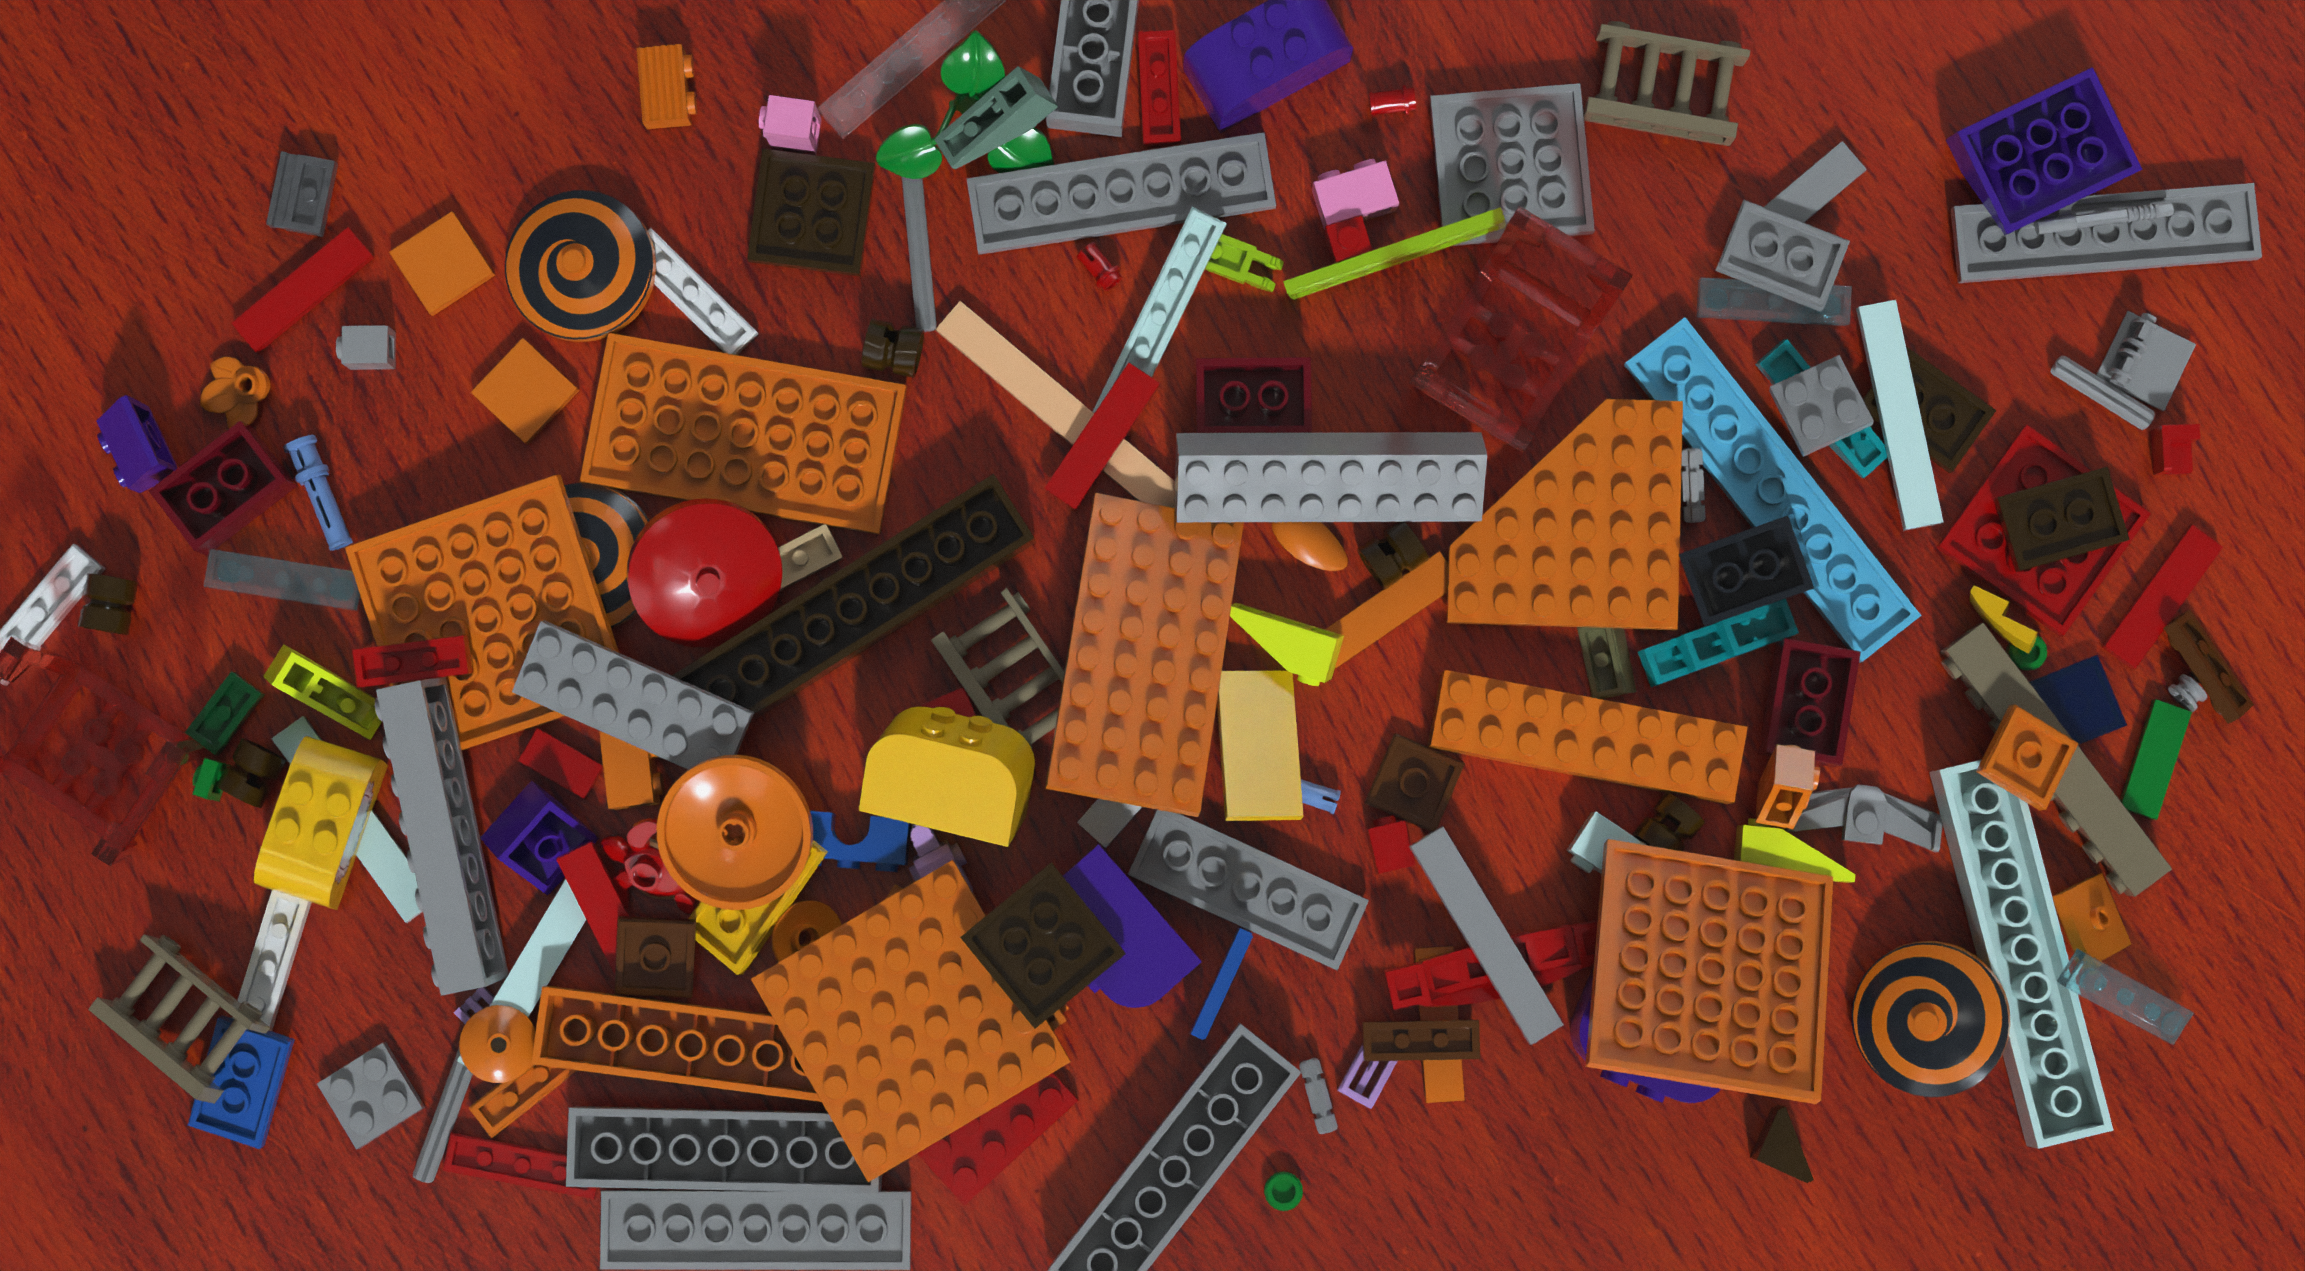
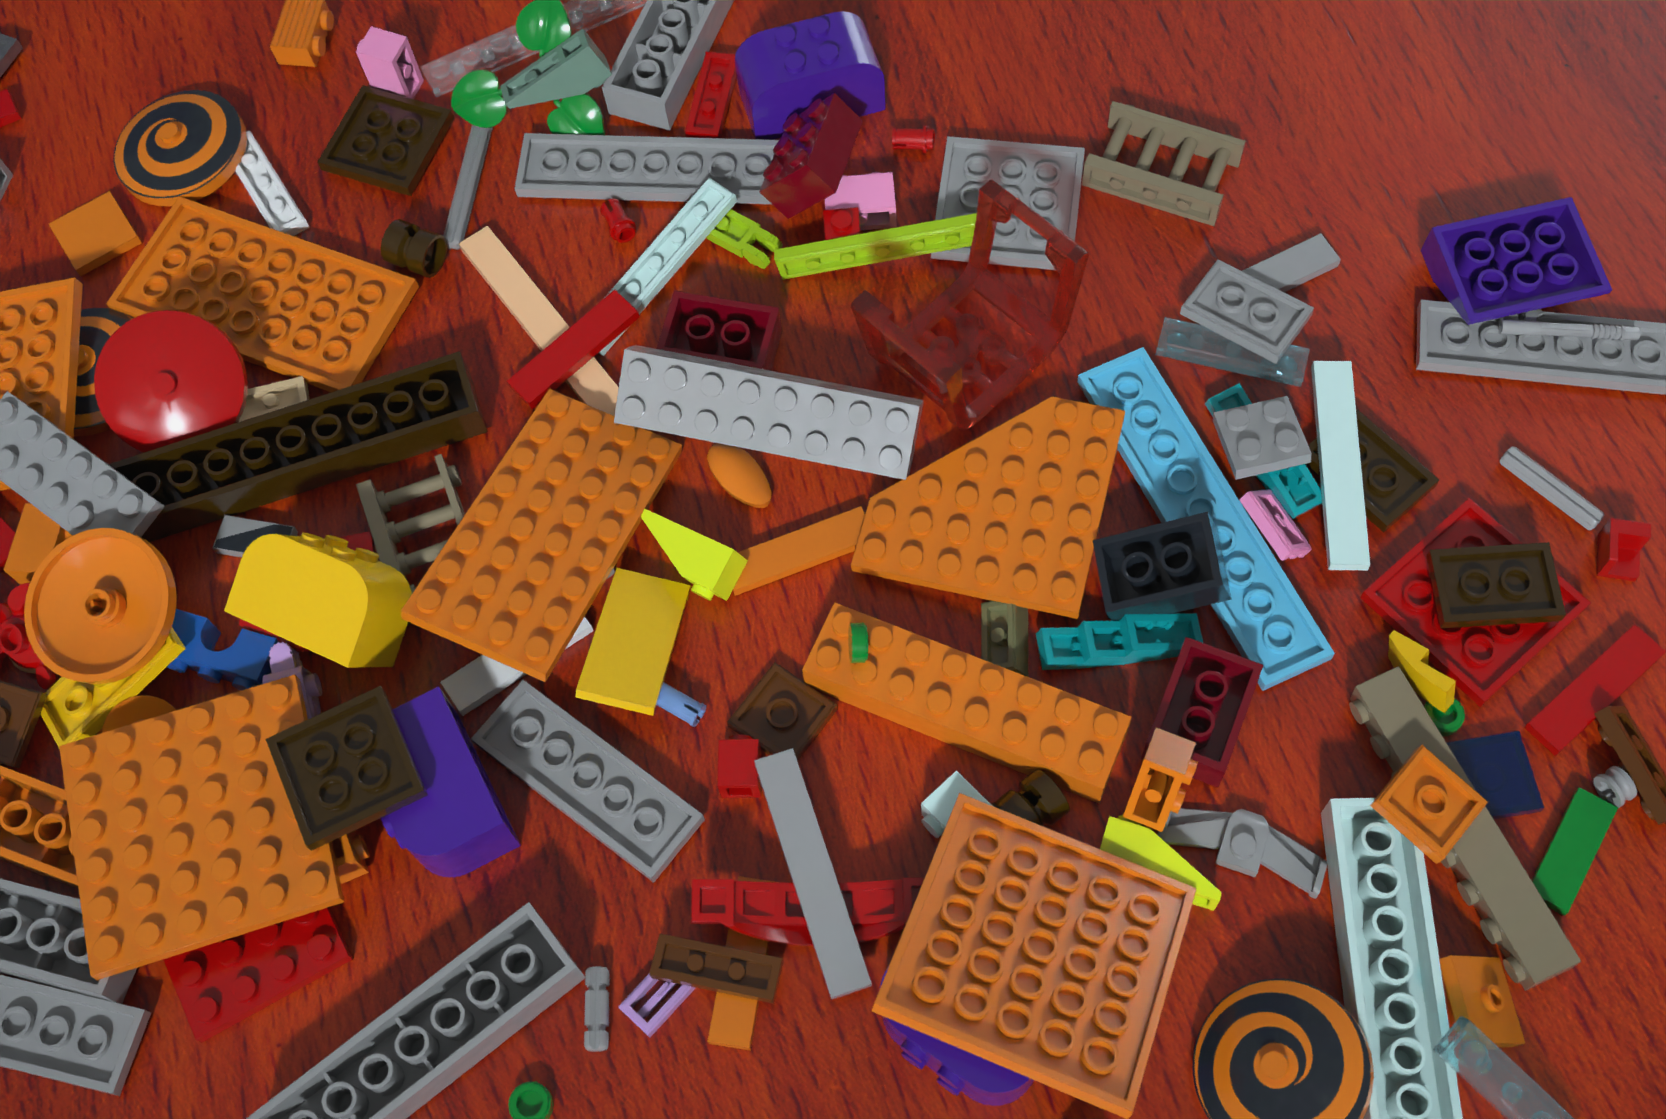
camera: 20 degrees right, 20 degrees down
(442, 263) = (70, 129): orange tile -> none
(837, 711) = (238, 533): none -> tile
(1221, 984) = (524, 861): blue tile -> none
(1298, 163) = (811, 155): none -> dark red brick
(1392, 554) = (814, 497): dark brown wheel -> none
(1483, 714) = (858, 642): none -> green tile
(1692, 485) = (1121, 492): light grey axle -> none
(1846, 489) = (1275, 524): none -> bright pink tile
(2145, 360) = (1600, 466): light grey hinge -> none

